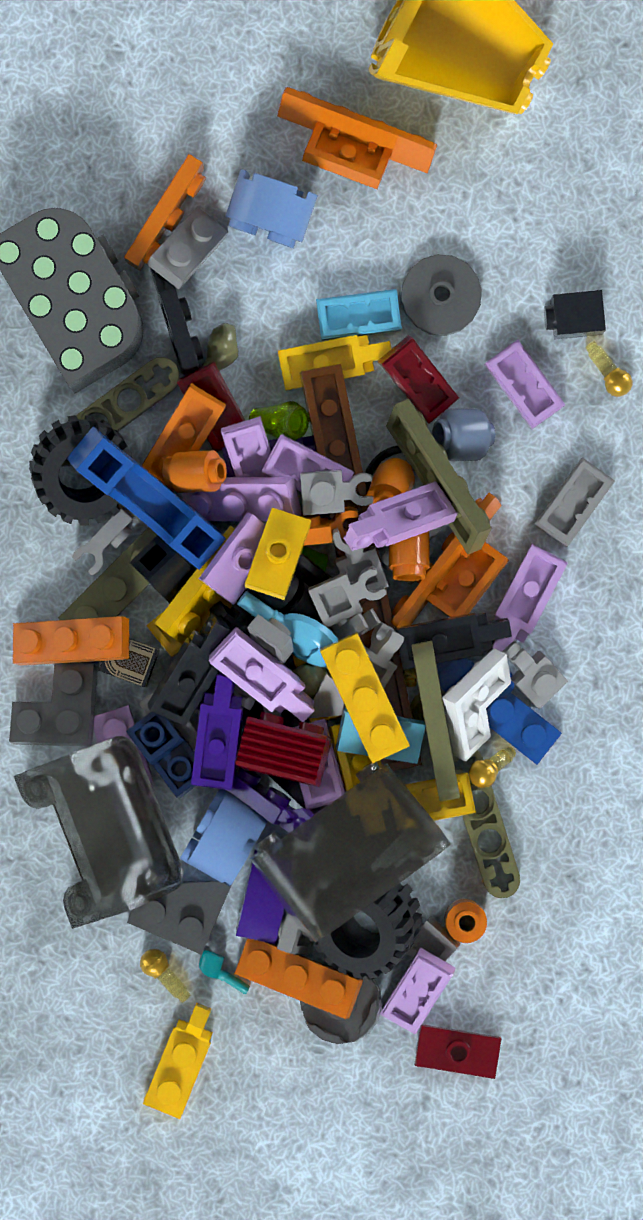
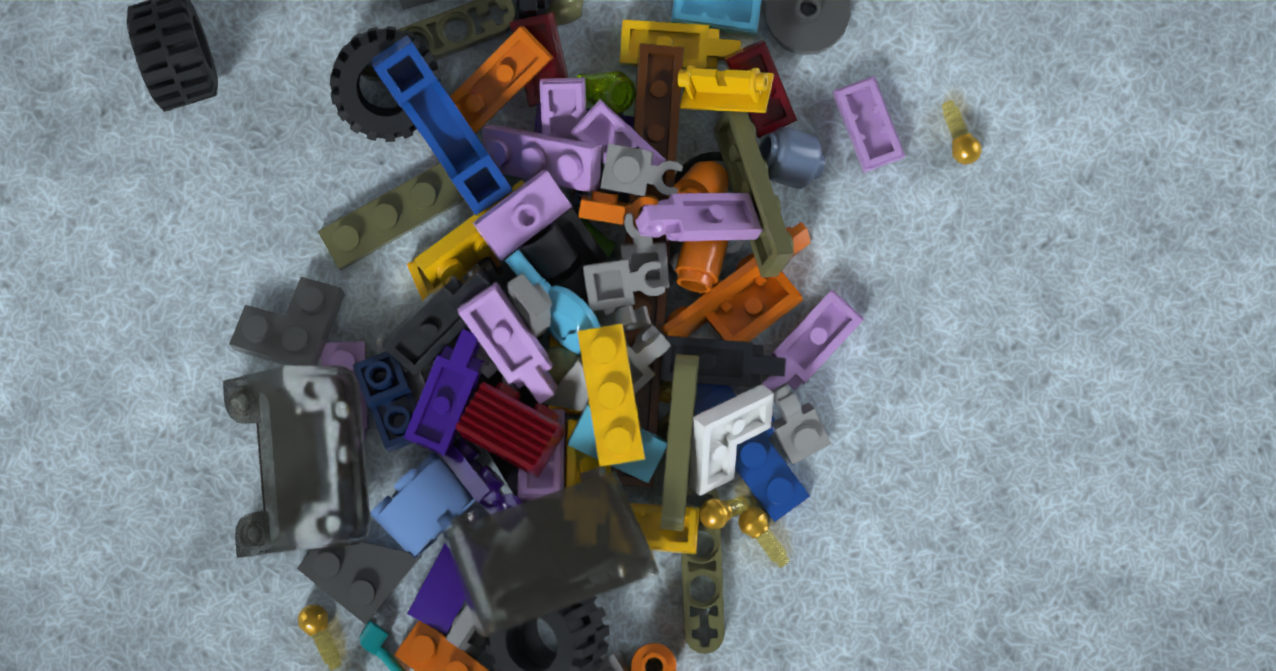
camera: 20 degrees right, 5 degrees down
(71, 641) = (323, 256): orange plate -> none
(113, 532) = (400, 158): light grey plate -> none
(136, 668) = (377, 292): brick -> none
(162, 568) = (439, 205): black brick -> none
(194, 471) = (500, 114): orange brick -> none
(278, 553) = (561, 218): yellow plate -> none
(389, 392) = (725, 89): none -> yellow hinge
(520, 771) = (756, 525): none -> piece
(574, 502) = (887, 259): light grey plate -> none
(575, 314) = (941, 67): black brick -> none

